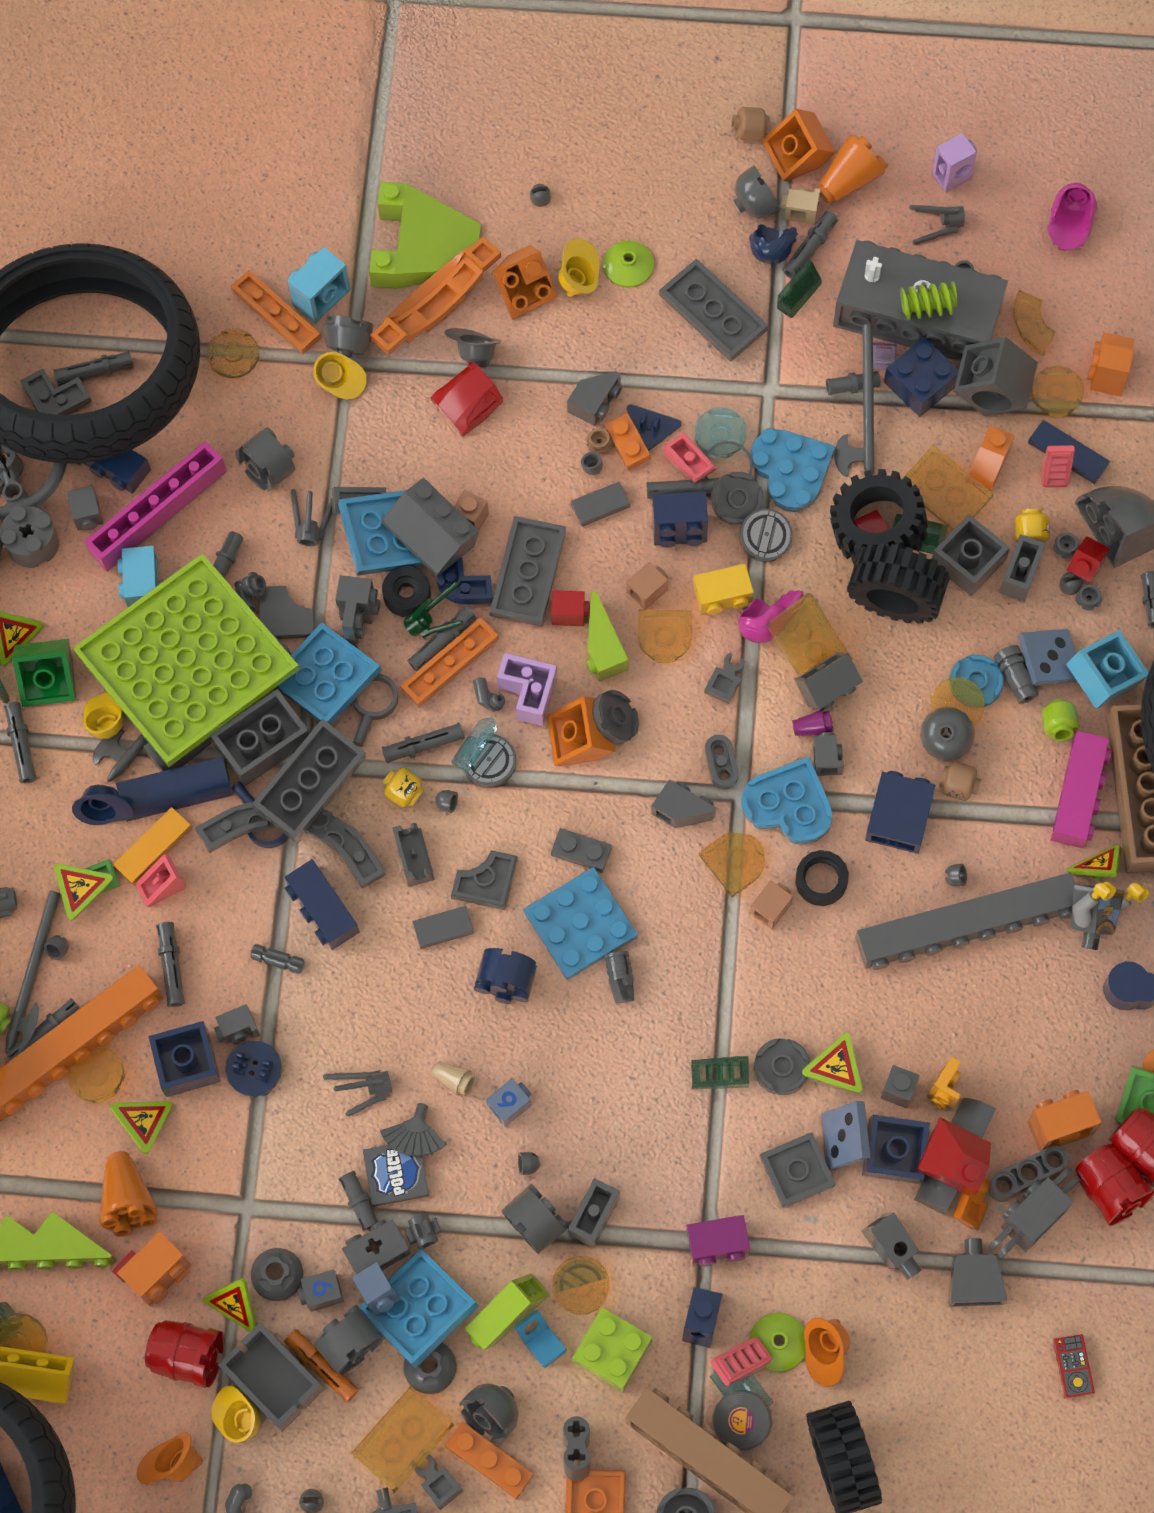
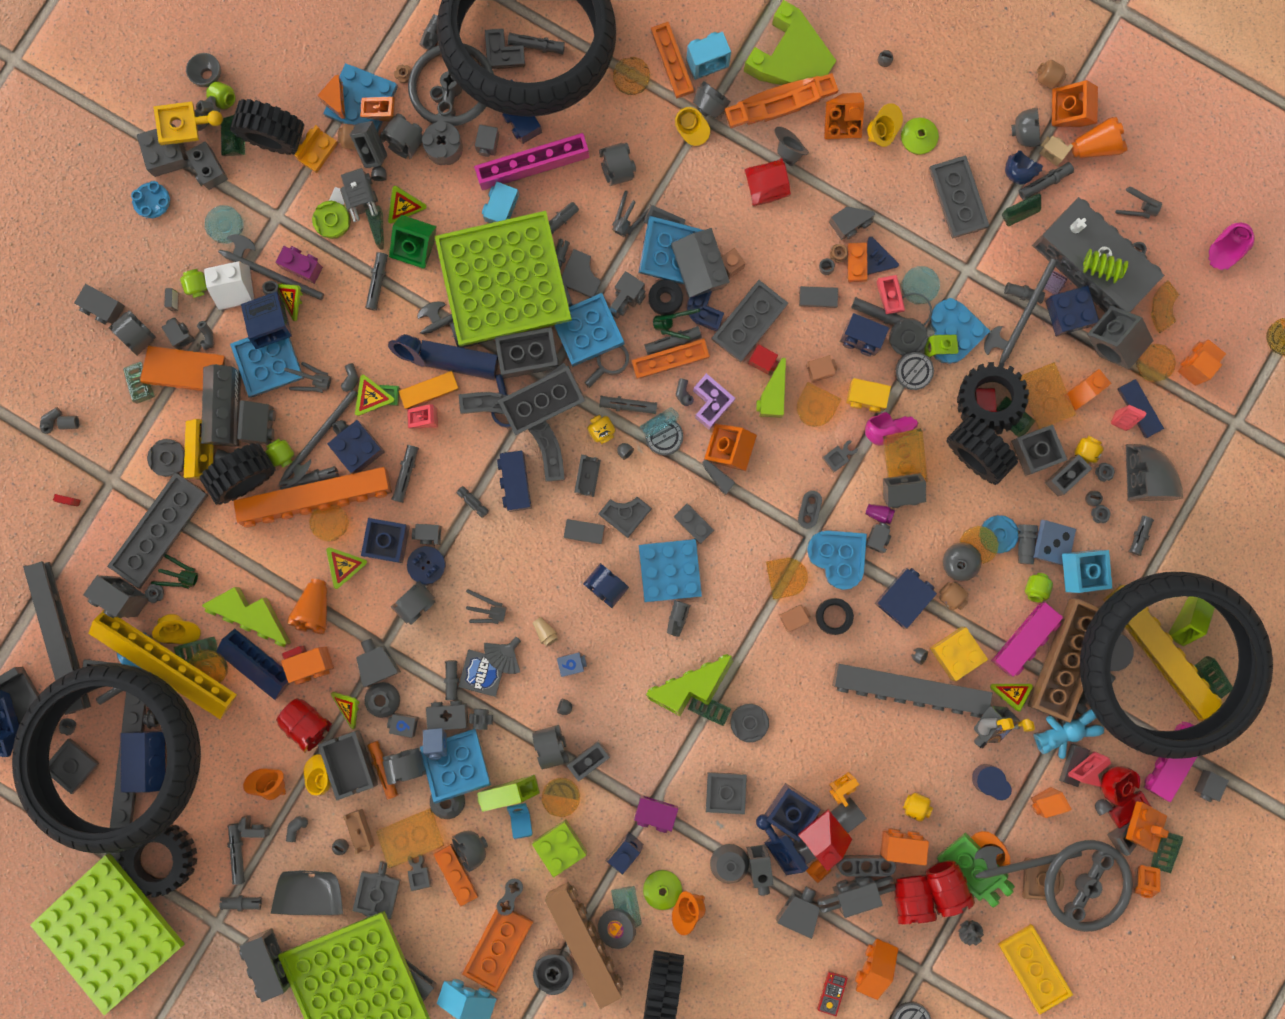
camera: 25 degrees right, 15 degrees up
(43, 879) = (352, 378): none -> dark grey arm
(80, 1309) = (253, 663): none -> dark blue brick
(89, 959) = (356, 447): none -> dark blue brick
(102, 717) = (434, 290): yellow cap -> none
(246, 1227) = (375, 663): none -> dark grey torso
(253, 585) = (569, 247): dark grey plate -> none
(260, 1119) = (413, 602): none -> dark grey brick
(326, 1465) = (359, 831): none -> medium nougat hinge
(586, 776) = (721, 480): none -> dark grey slope
(615, 716) = (757, 448): dark grey tile -> none
(681, 807) = (769, 527): dark grey slope -> none
(688, 1047) = (697, 684): none -> lime slope
(743, 1359) = (643, 895): coral slope -> none
(783, 487) = (941, 345): none -> lime bracket
(836, 1066) = (782, 741): piece -> none
(845, 1135) = (765, 789): sand blue tile -> none
(849, 1260) = (729, 863): none -> dark grey cone
(900, 1086) = (815, 773): dark grey brick -> none
(902, 1199) = (782, 849): none -> dark blue plate
(954, 162) = (1173, 169): lavender brick -> none
(1003, 847) = (958, 653): none -> yellow brick
(1055, 1065) = (917, 807): none -> yellow head
(1088, 559) = (1114, 490): red brick -> none
(1115, 1300) = (877, 970): none -> orange brick

